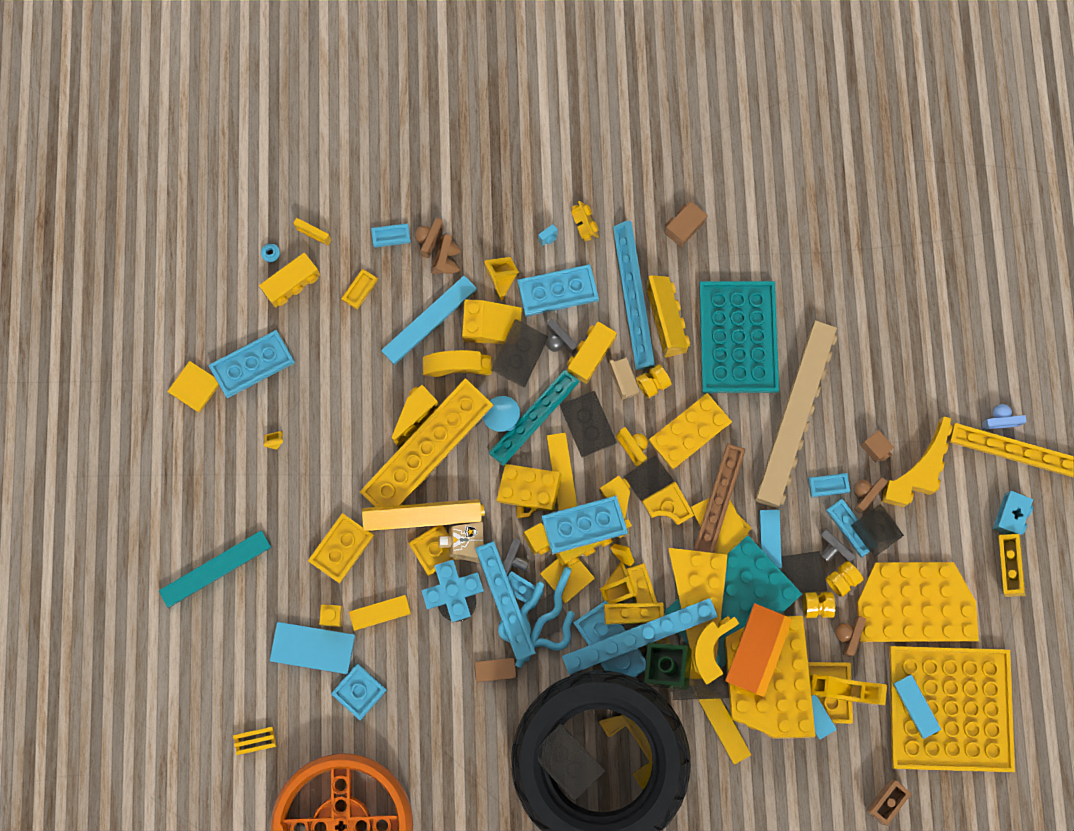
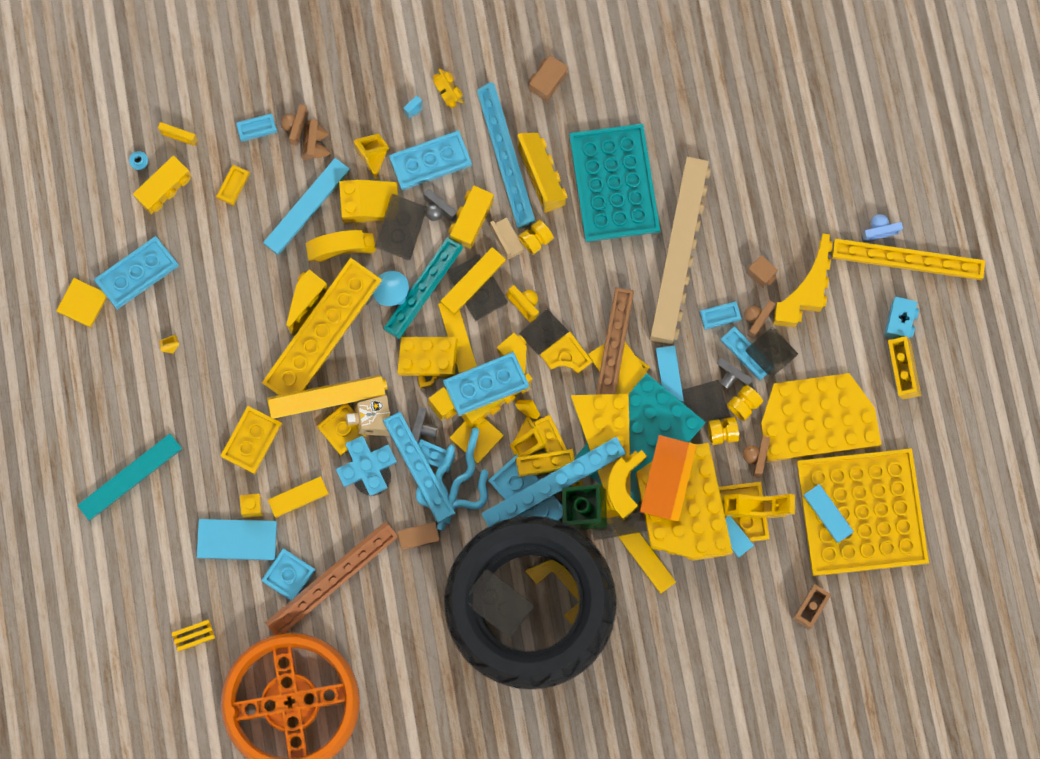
camera: 10 degrees left, 0 degrees up
(401, 703) = (331, 579): none -> nougat plate
(584, 417) = (473, 281): none -> yellow tile
(690, 431) = (578, 281): yellow plate -> none

